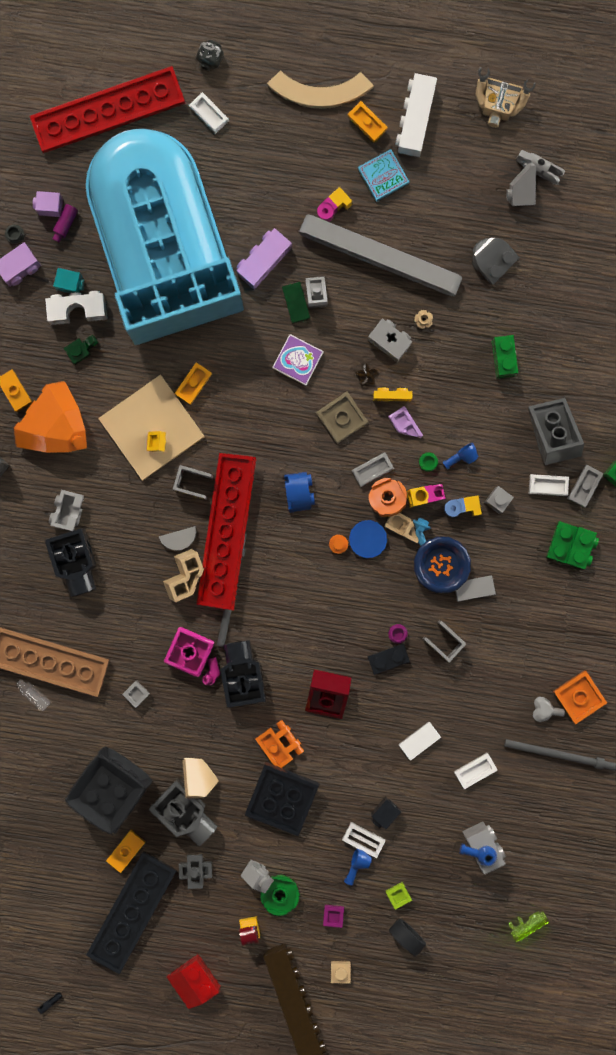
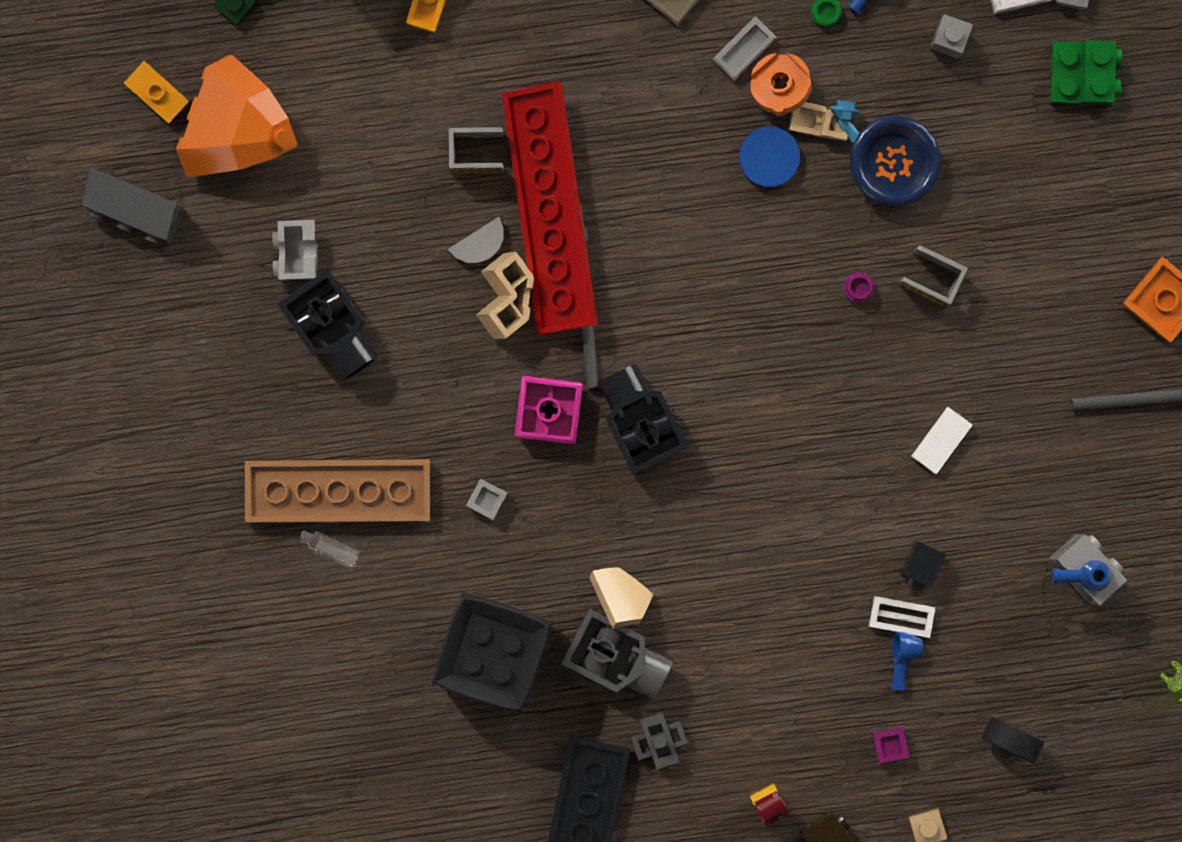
camera: 20 degrees left, 0 degrees up
(125, 851) = (543, 743): light orange plate -> none
(146, 411) = (385, 86): tan tile -> none
(156, 441) = (400, 103): yellow plate -> none
(213, 673) = (595, 431): dark pink arm -> none
(257, 876) = (756, 718): light grey brick -> none
(274, 748) = (723, 517): orange plate -> none
(282, 799) = (758, 590): black plate -> none
(287, 903) = (812, 750): green plate -> none
(298, 491) = (642, 117): blue cylinder -> none
(328, 694) = (780, 411): dark red slope -> none
(338, 544) = (726, 177): orange plate -> none
(388, 659) = (856, 330): black plate -> none
(398, 895) = (980, 683): lime plate -> none
(425, 495) = (837, 63): leg -> none
(457, 506) = (900, 61): leg -> none
(475, 770) = (1040, 460): white tile -> none
(476, 588) = (957, 183): light grey tile -> none
(545, 710) = (1118, 335): light grey rock -> none

